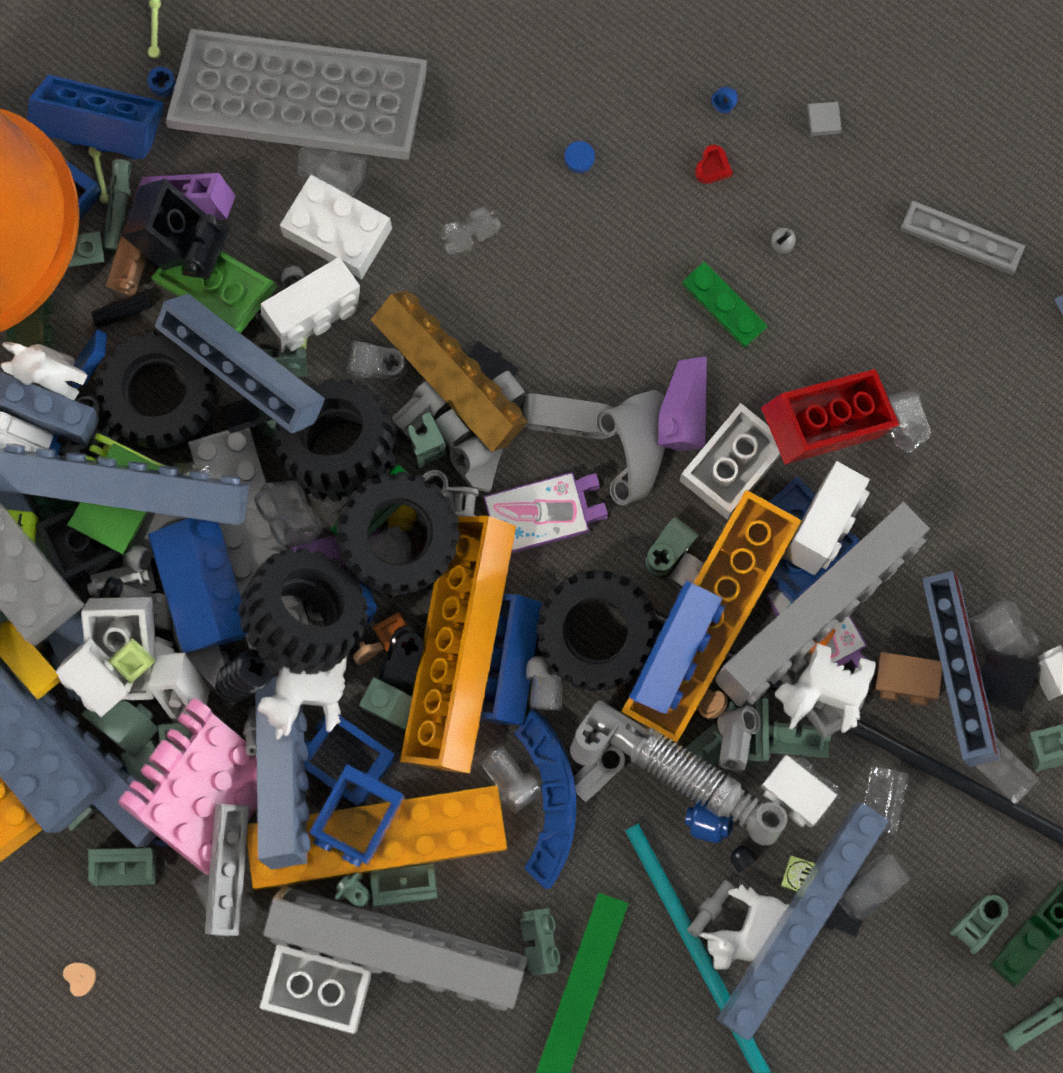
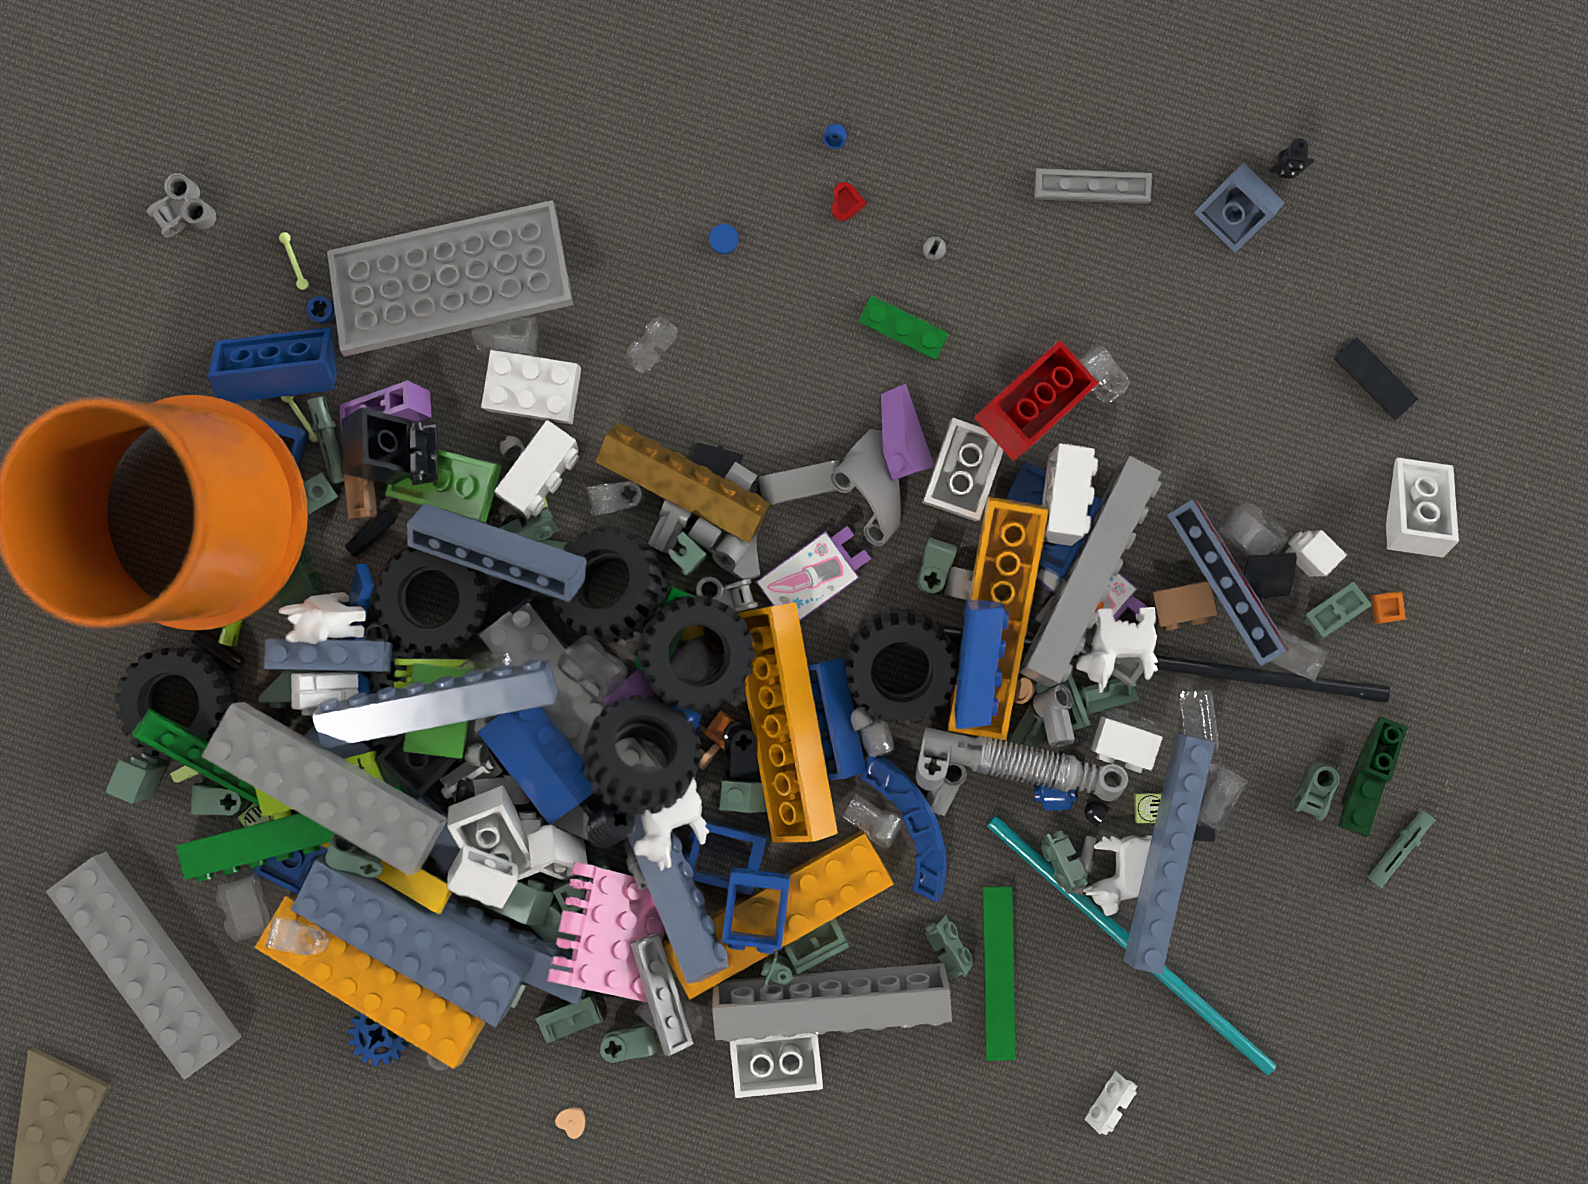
camera: 20 degrees left, 10 degrees up
(131, 660) = (508, 850): yellowish green tile -> none
(178, 915) = (634, 1042): none -> sand green piece
(689, 906) = (1066, 872): none -> sand green hinge
(824, 118) = (930, 120): light grey tile -> none

